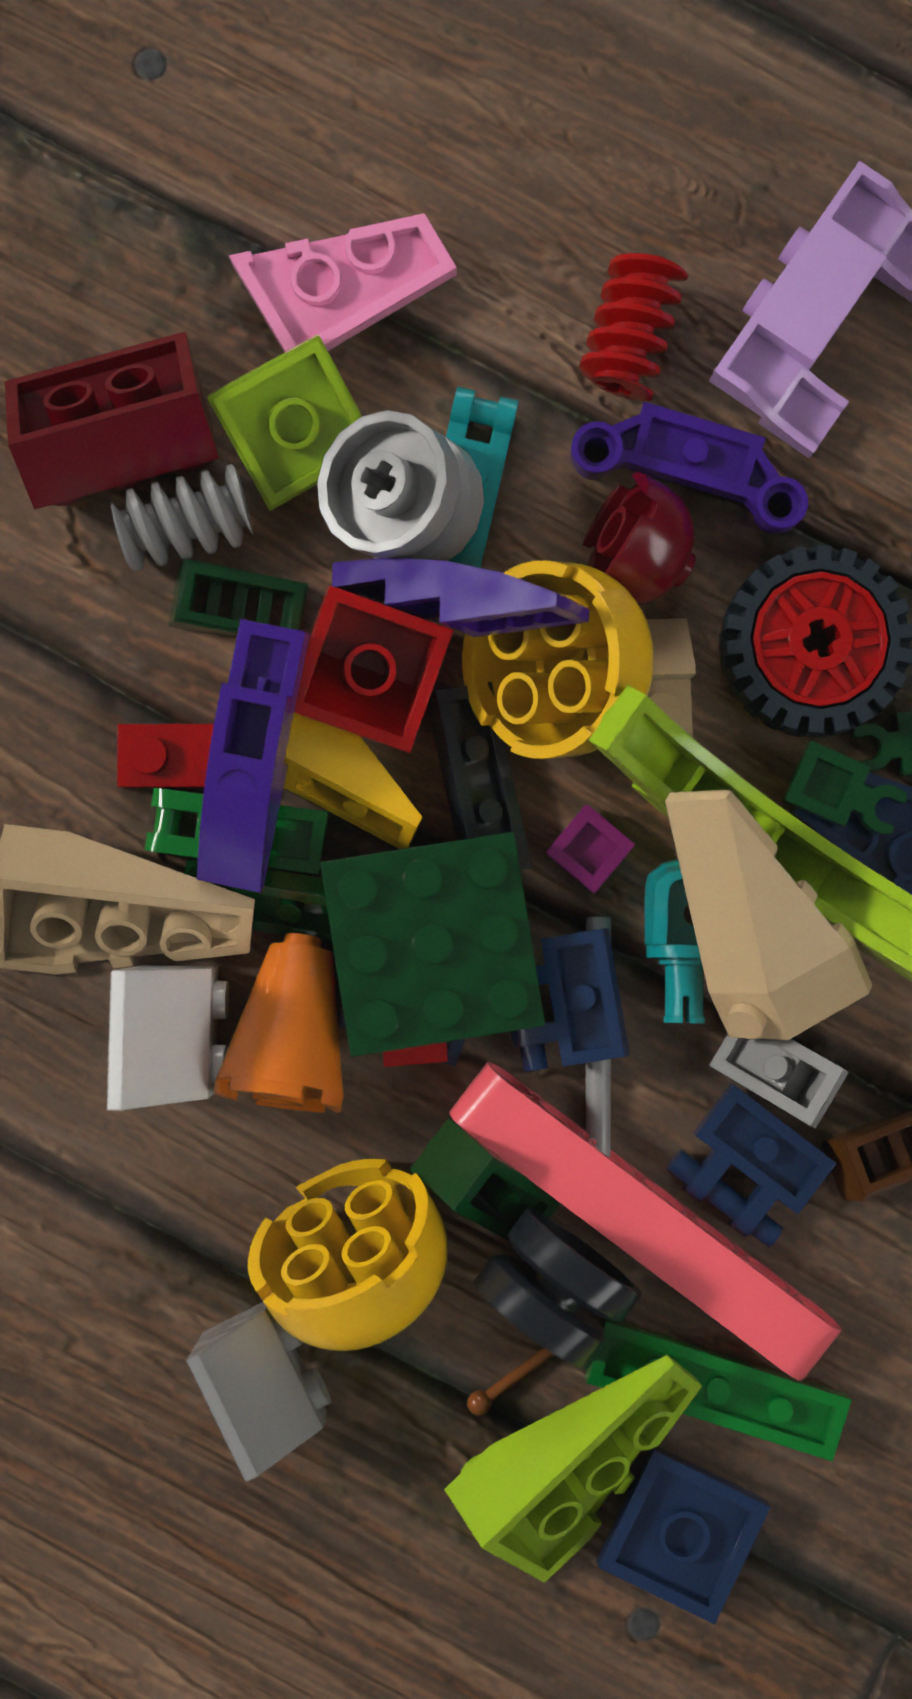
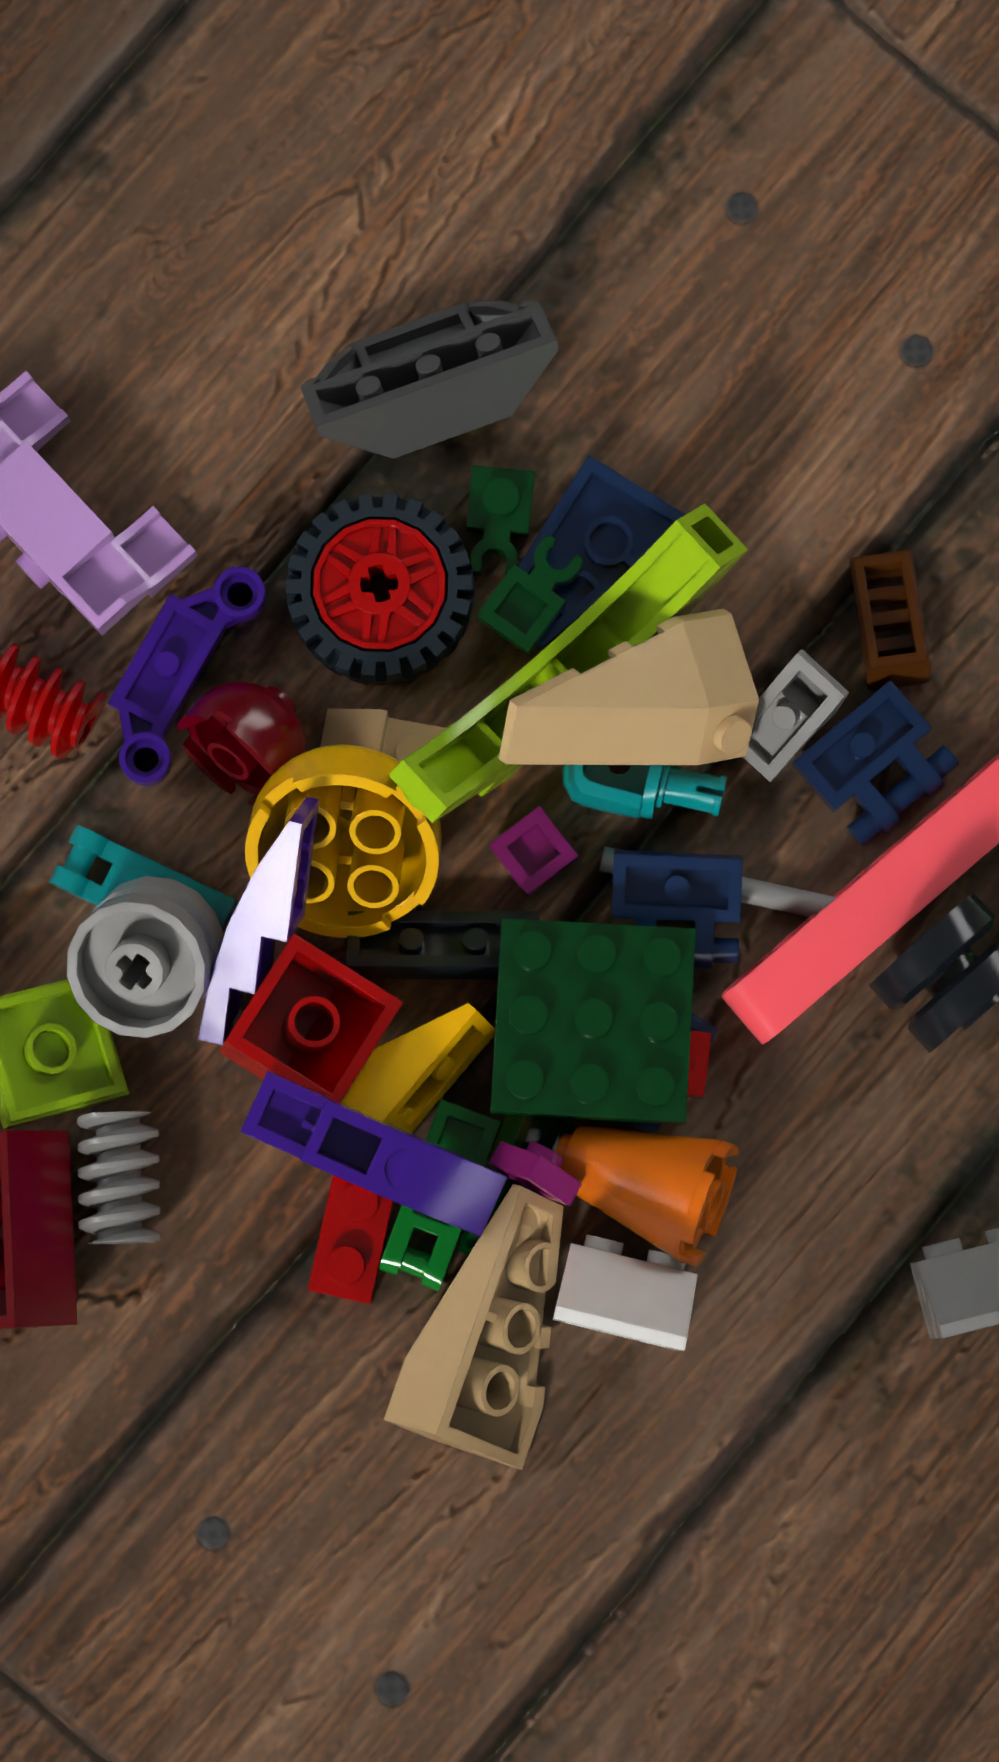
camera: 70 degrees left, 5 degrees down
(217, 576) = (190, 1196): dark green slope -> none
(274, 920) = (536, 1170): none -> magenta plate
(357, 1287) = (911, 1160): yellow cylinder -> none
(478, 1181) = (834, 1026): dark green slope -> none

